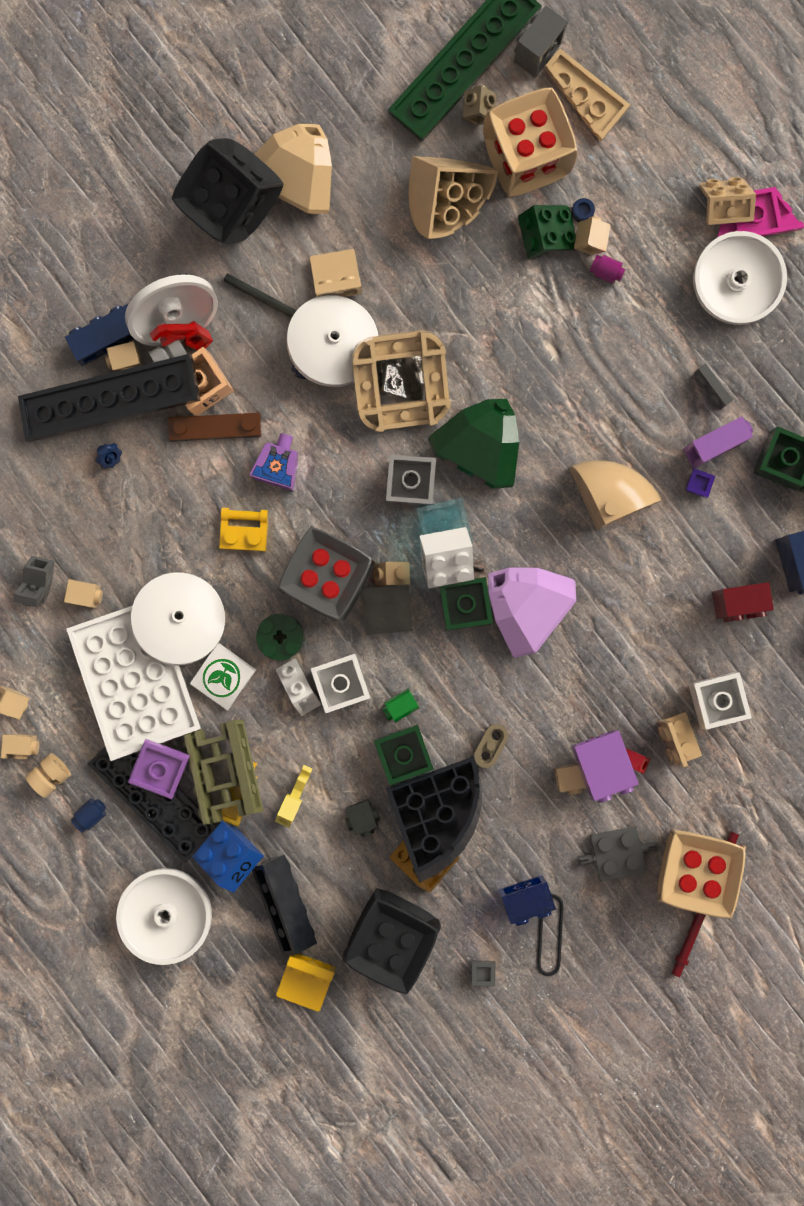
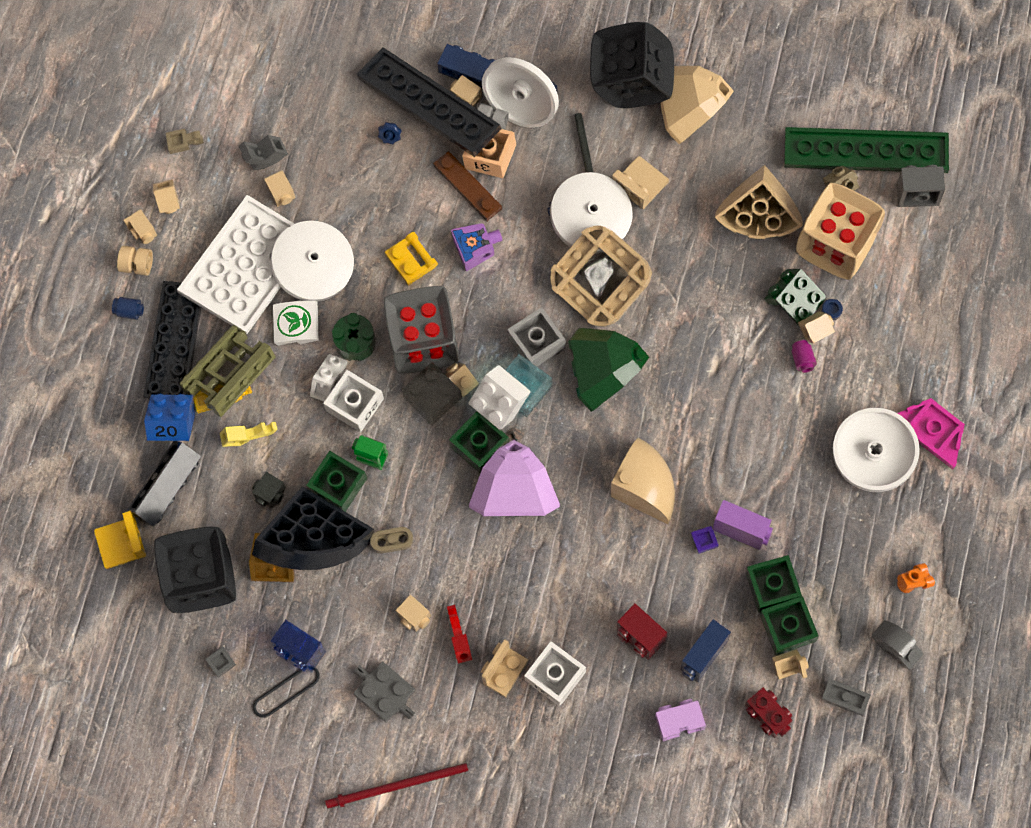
camera: 60 degrees right, 15 degrees down
(147, 930) = (82, 396): white dish -> none
(158, 768) = (196, 325): medium lavender tile -> none
(192, 334) = (514, 113): red piece -> none
(588, 95) = (915, 254): tan wing -> none
(605, 766) = (439, 623): medium lavender brick -> none
(701, 874) = (414, 749): tan piece -> none
(717, 394) = (779, 501): dark grey plate -> none
(728, 201) = (923, 398): tan bracket -> none

